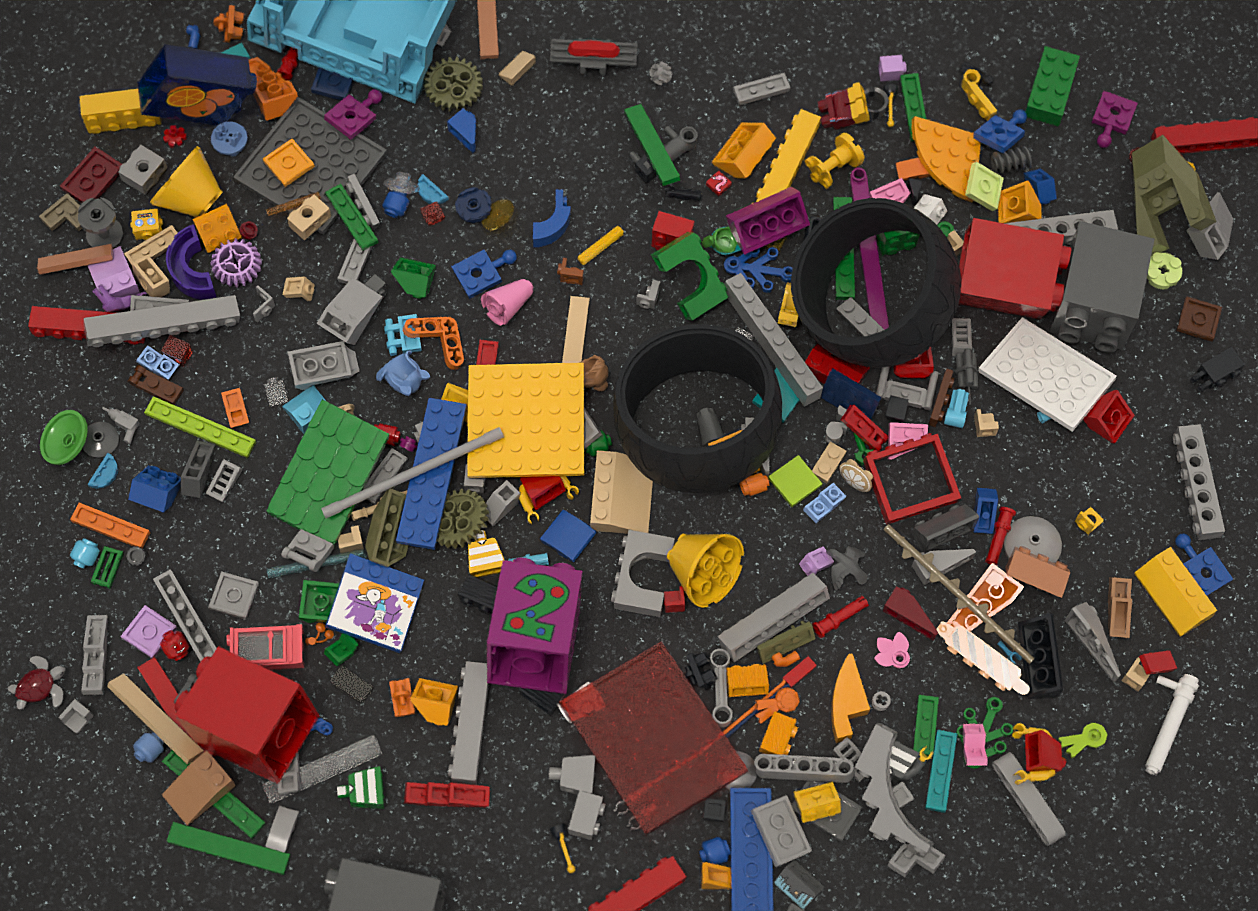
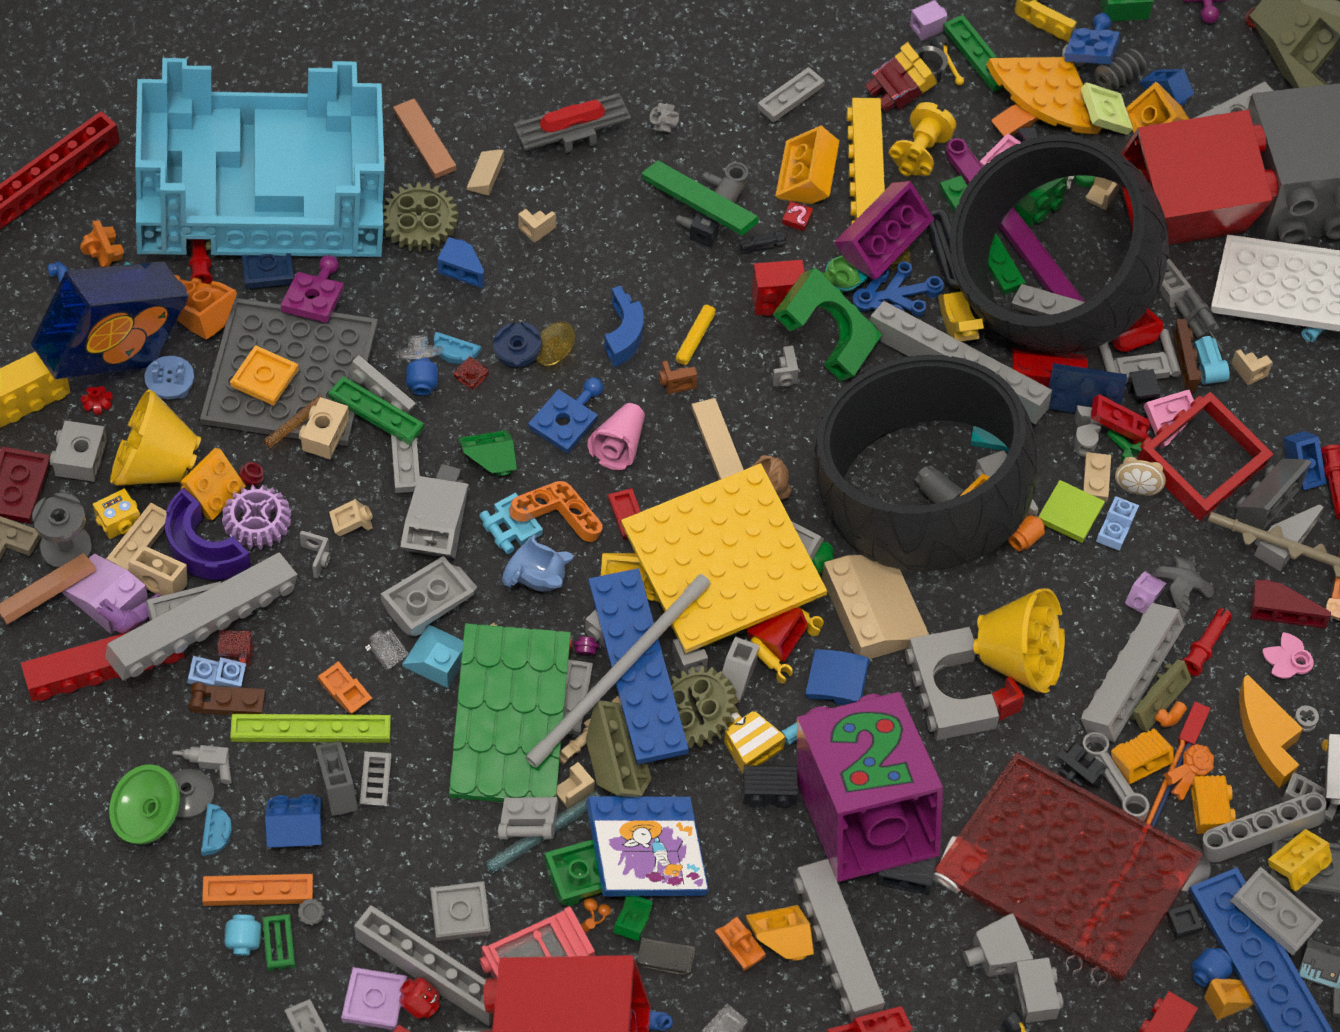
camera: 25 degrees left, 10 degrees down
(532, 121) = (536, 225): none -> tan panel

